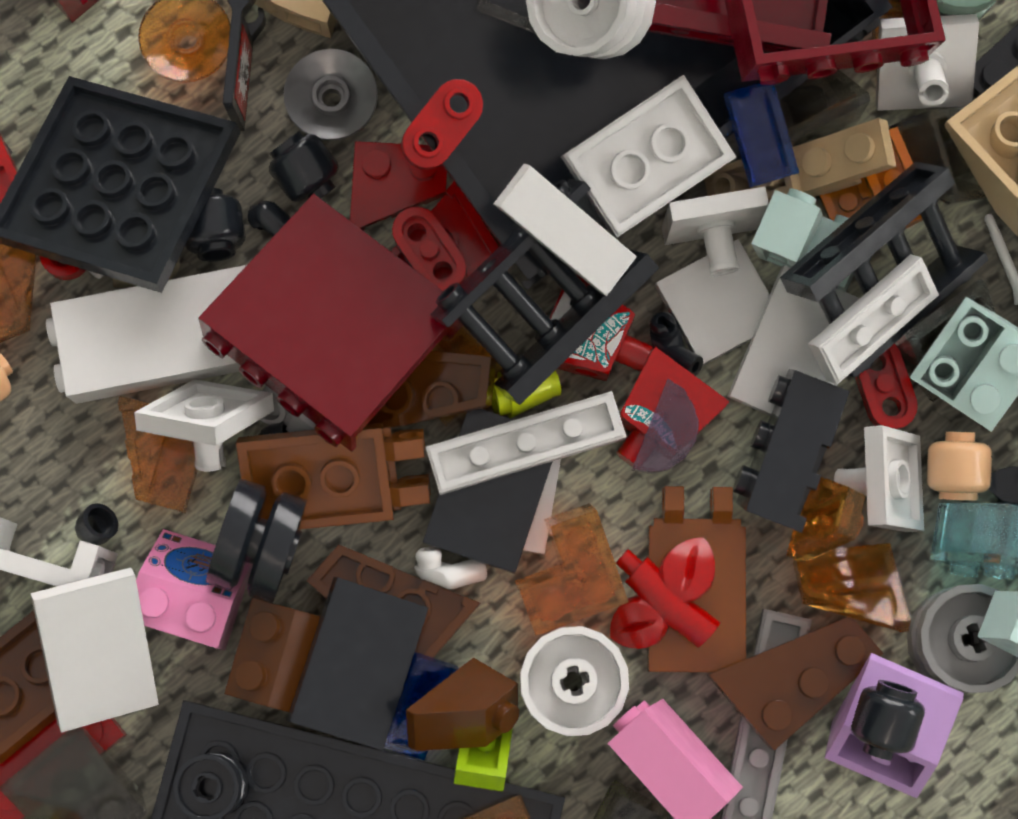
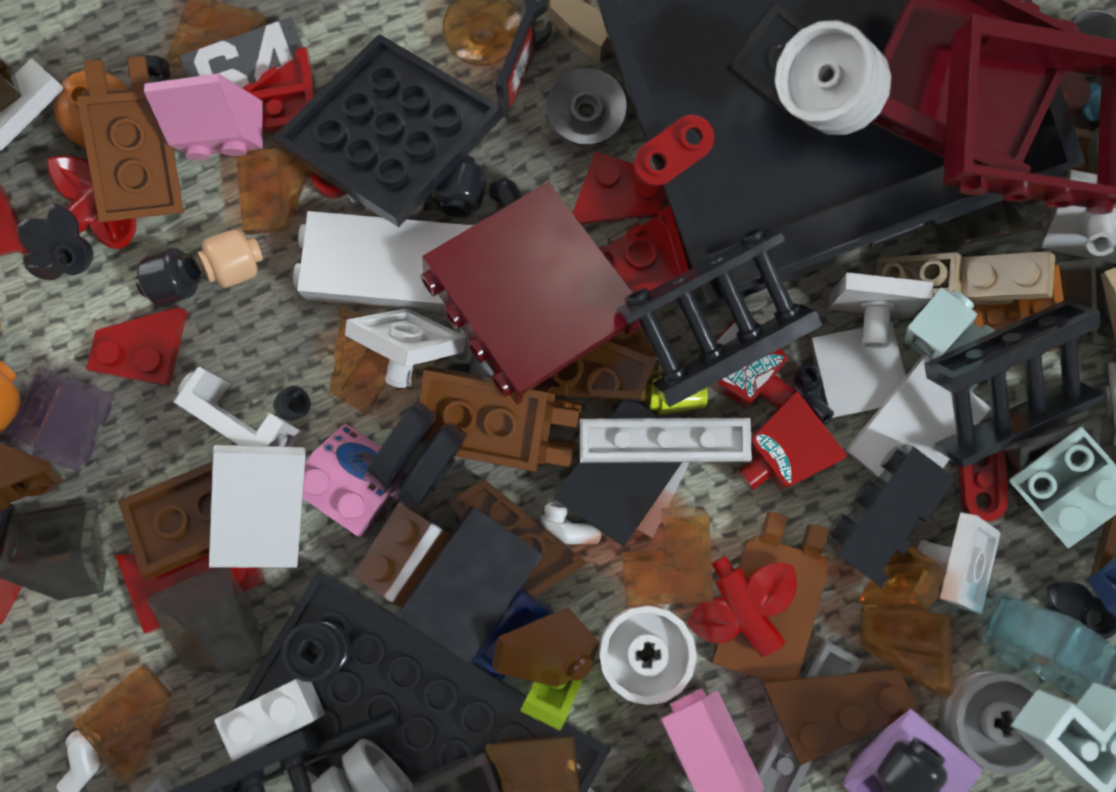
camera: 25 degrees right, 0 degrees up
(303, 167) = (546, 159): black head -> none
(433, 251) = (632, 259): red plate -> none
(565, 229) = (752, 268): white tile -> none
(649, 156) = (841, 228): white tile -> none
(670, 432) = (789, 467): tile -> none
(761, 133) = (942, 236): clear blue tile -> none
(873, 319) = (994, 422): white tile -> none
(959, 466) = (1029, 569): light nougat head -> none

